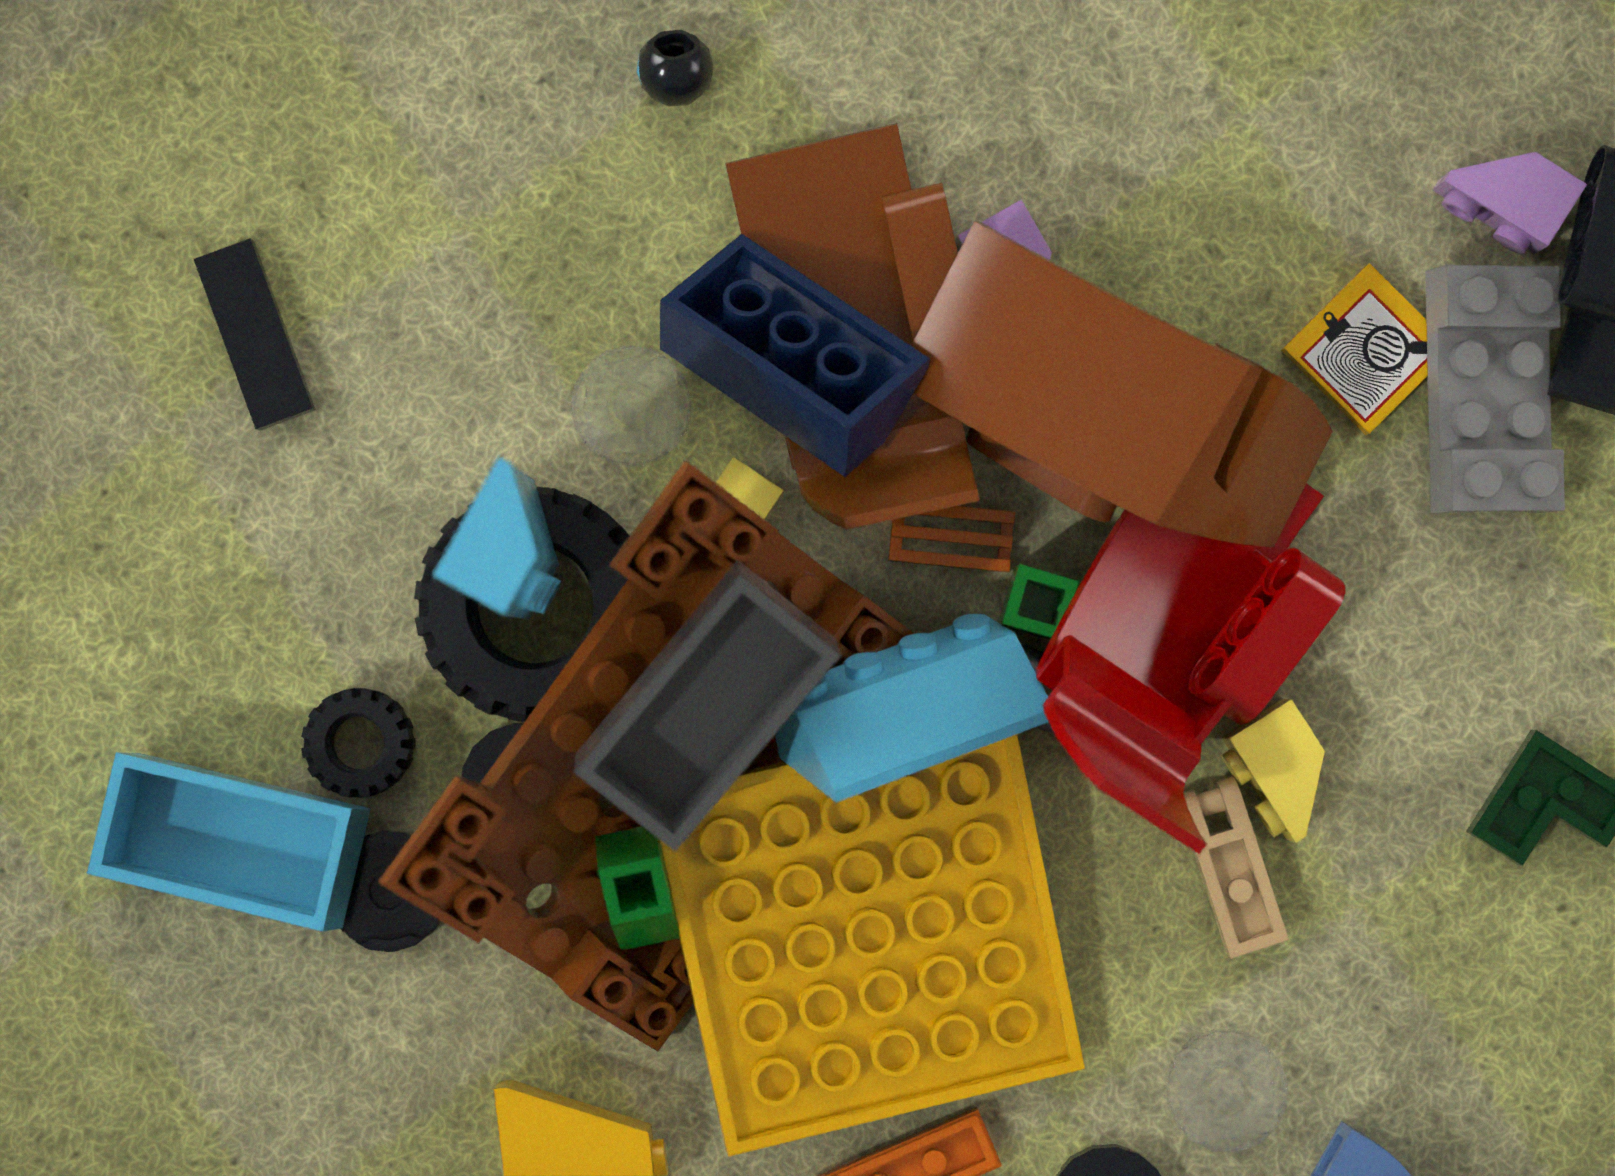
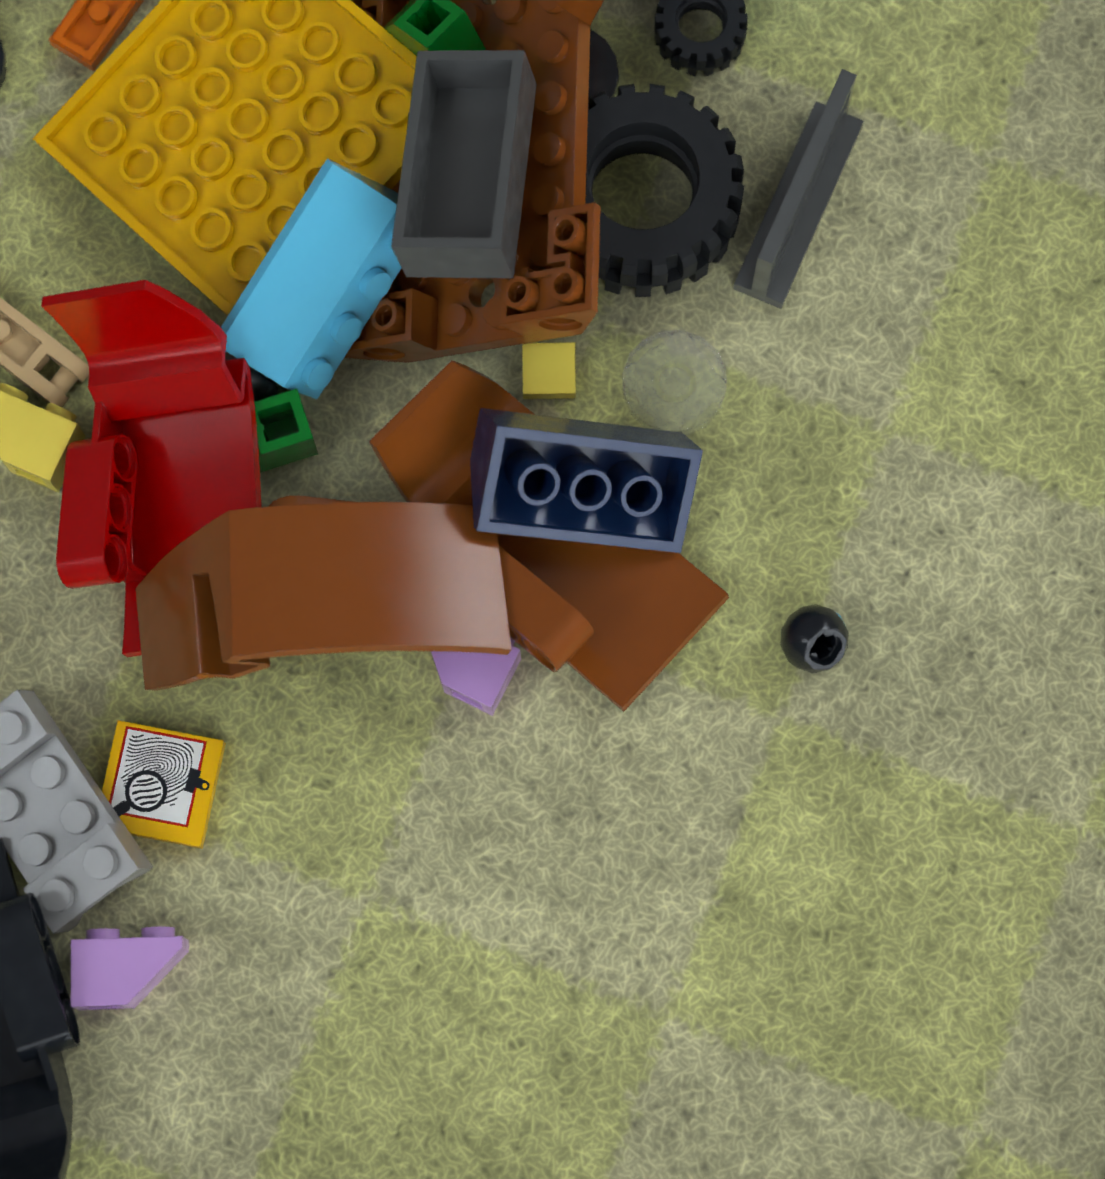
camera: 150 degrees right, 10 degrees down
(254, 334) = (978, 254): black tile -> none
(385, 503) = (801, 197): none -> dark grey fence
(504, 547) = (677, 162): medium azure slope -> none
(1002, 541) = (352, 436): orange tile -> none

